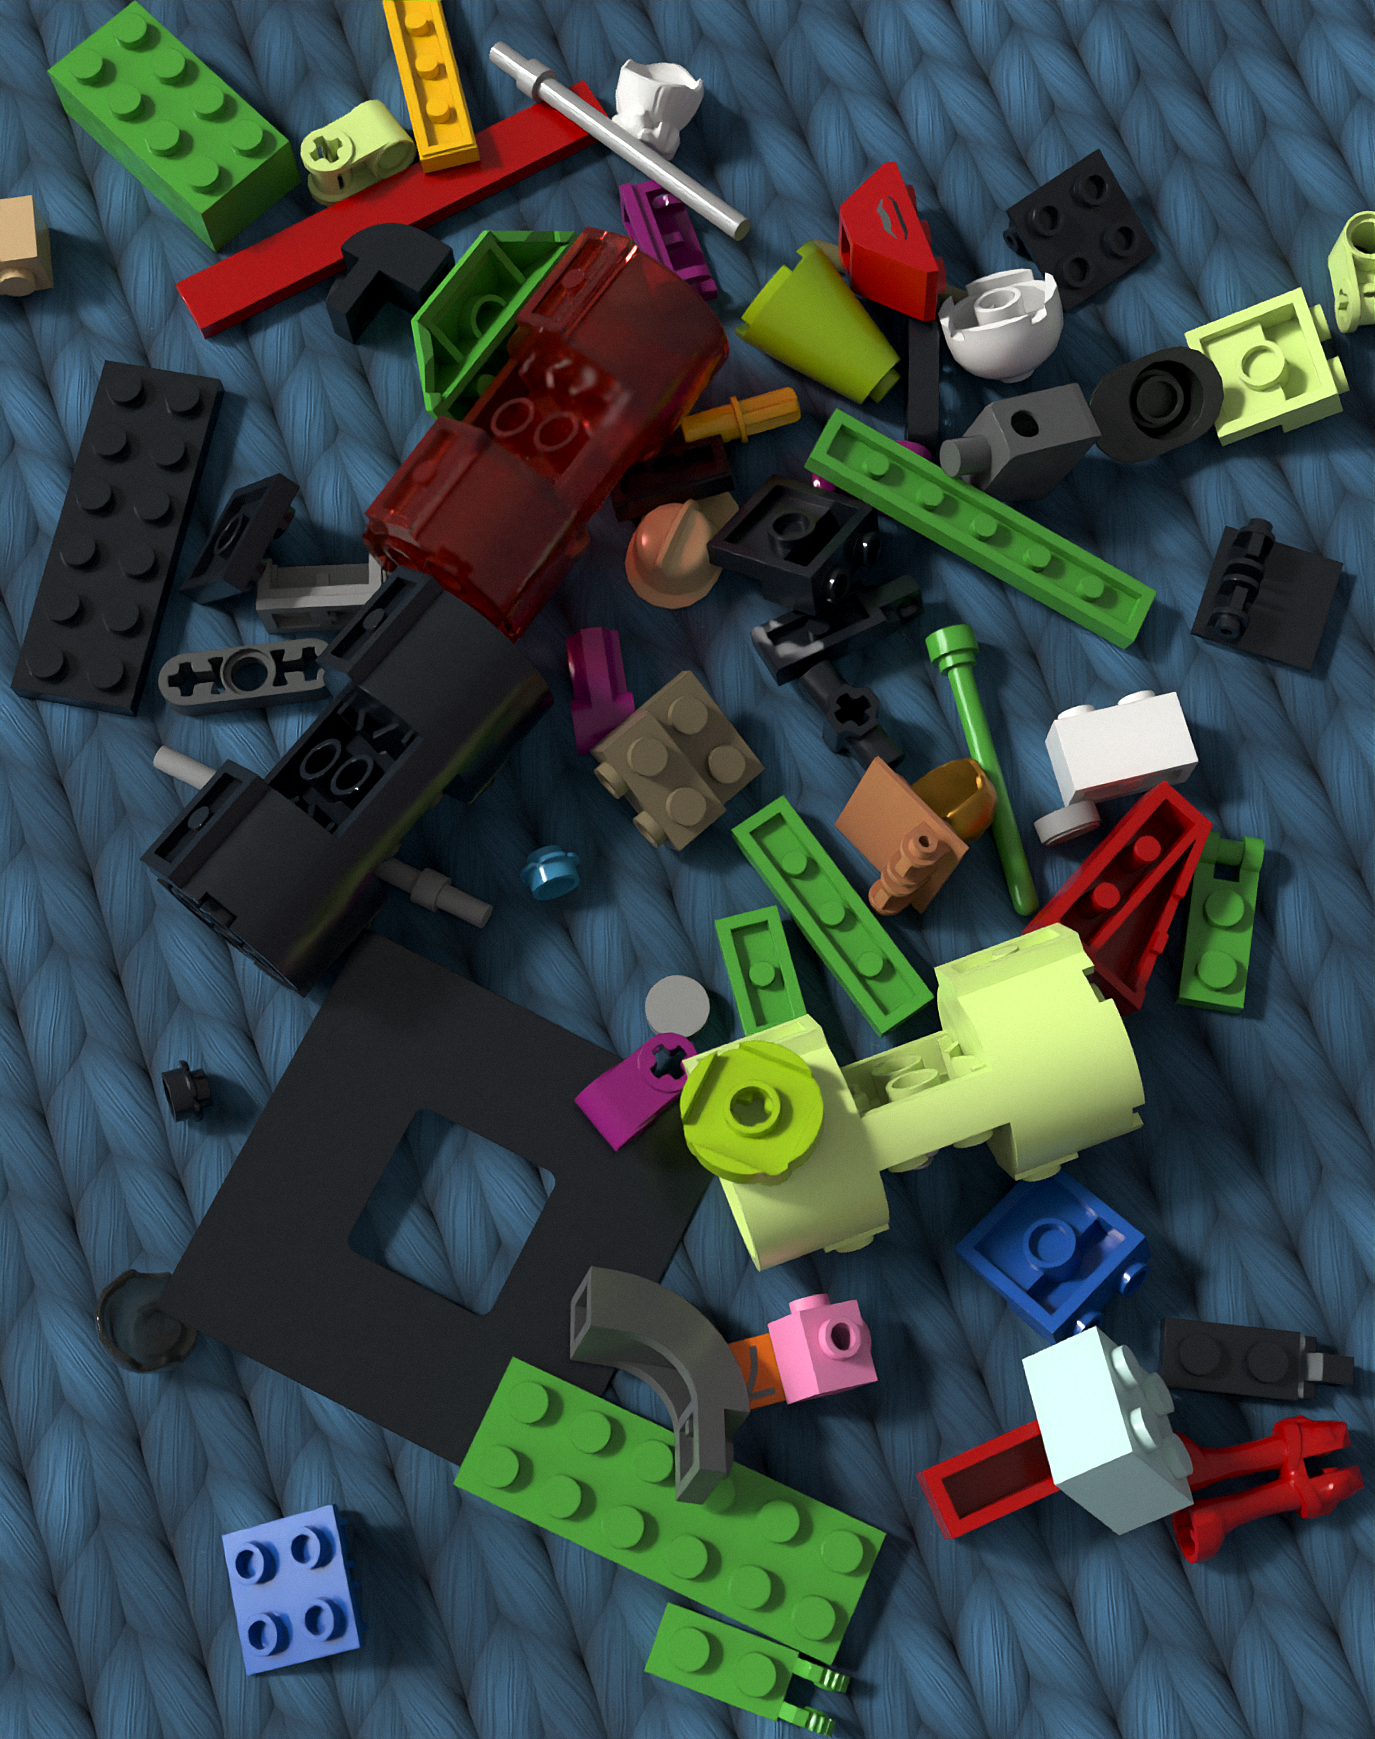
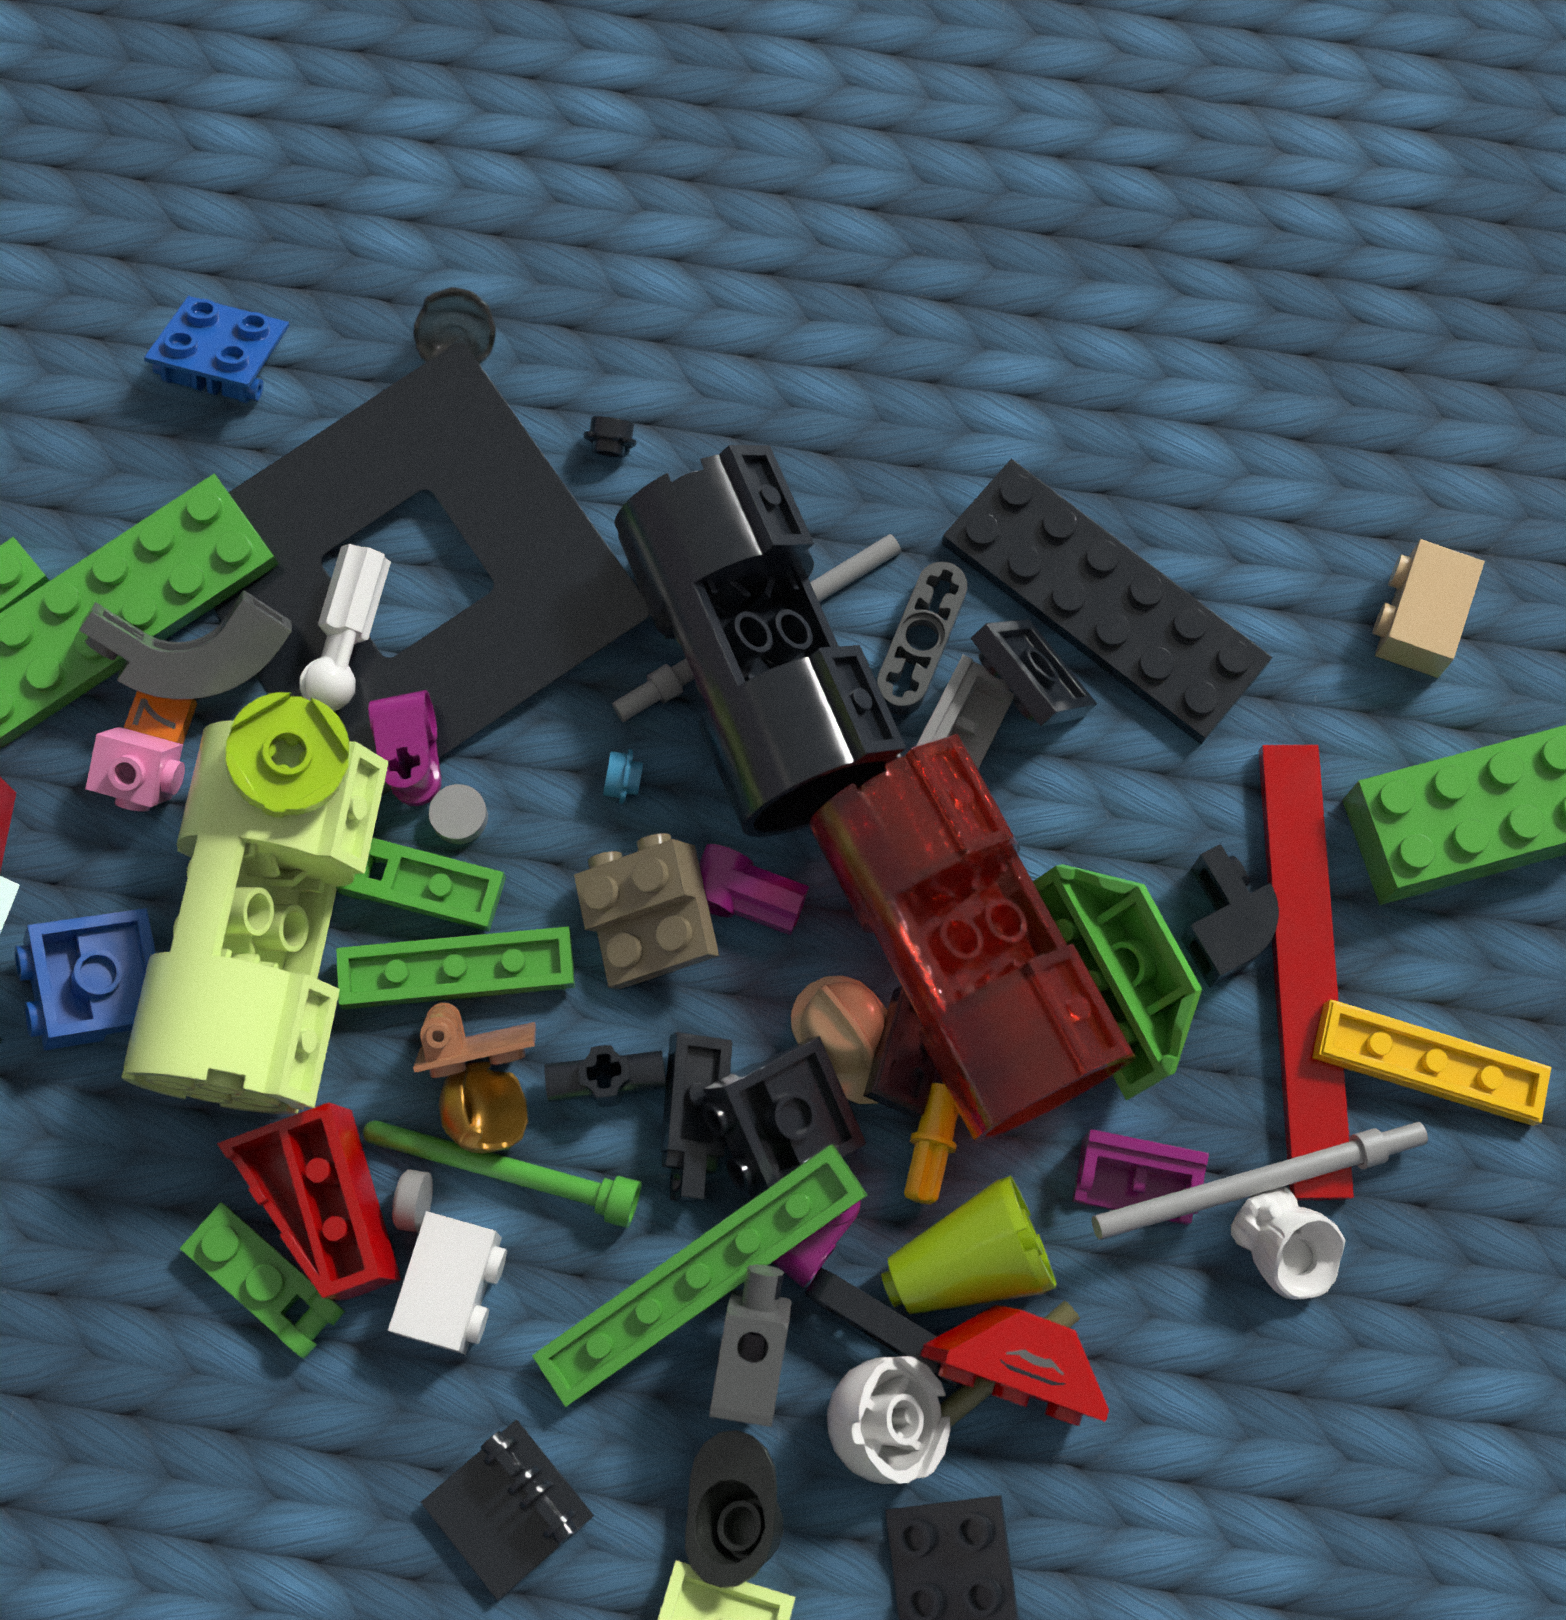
camera: 115 degrees right, 0 degrees up
(360, 148) = (1378, 963): yellowish green piece -> none
(546, 1229) = (346, 621): none -> white piece

